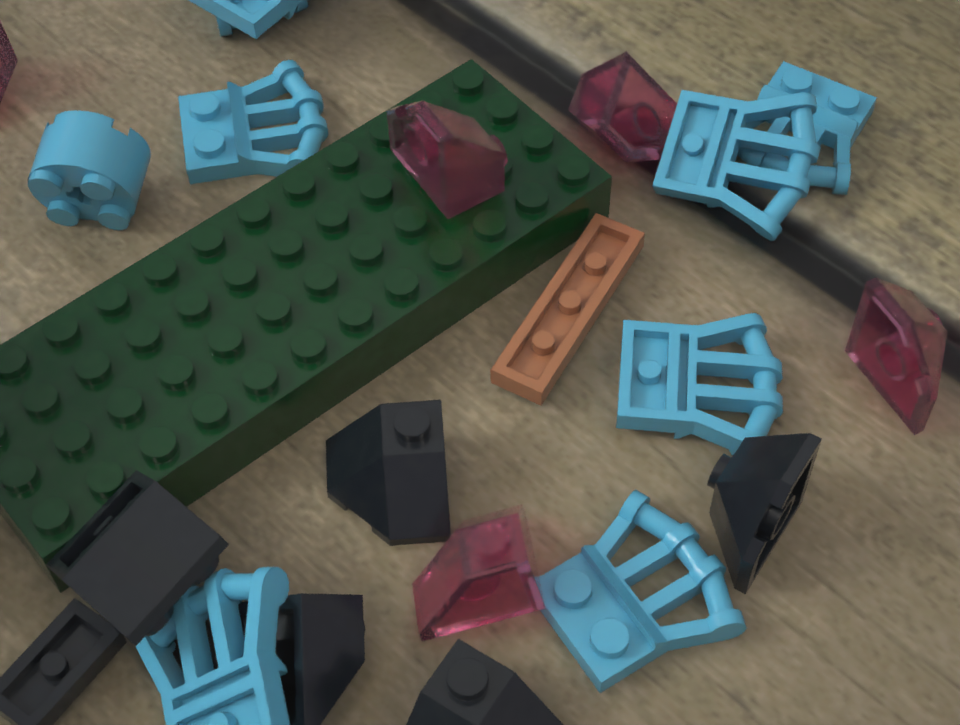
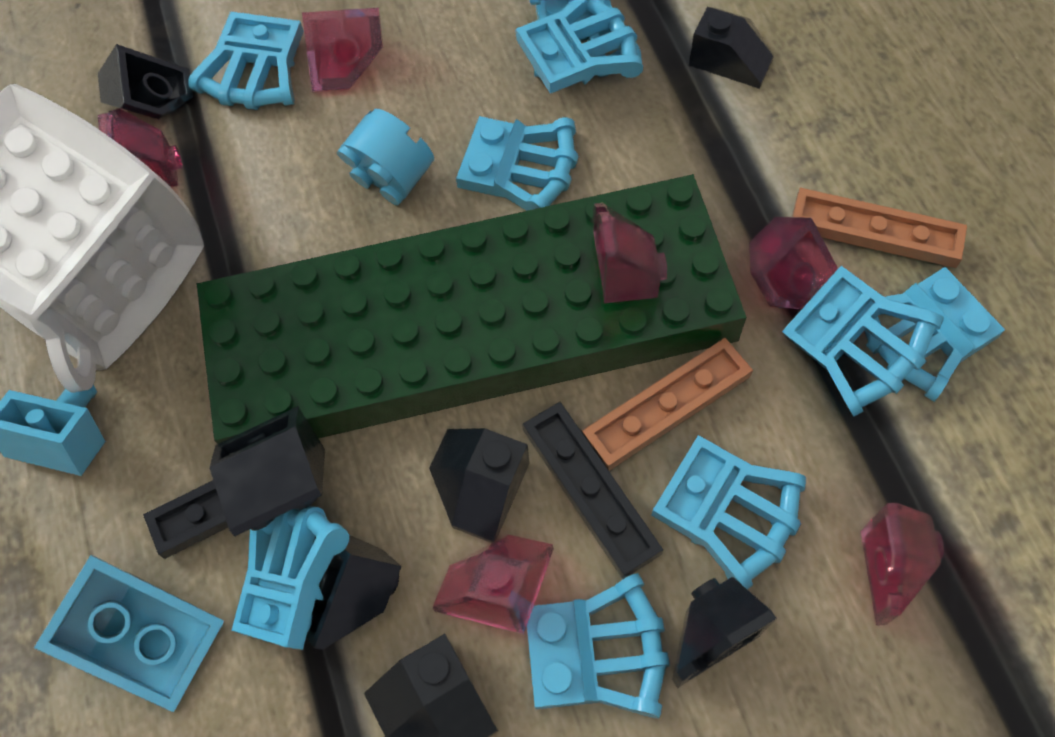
camera: 30 degrees right, 10 degrees up
(536, 428) = (592, 490): none -> black plate
(702, 46) = (883, 227): none -> nougat plate

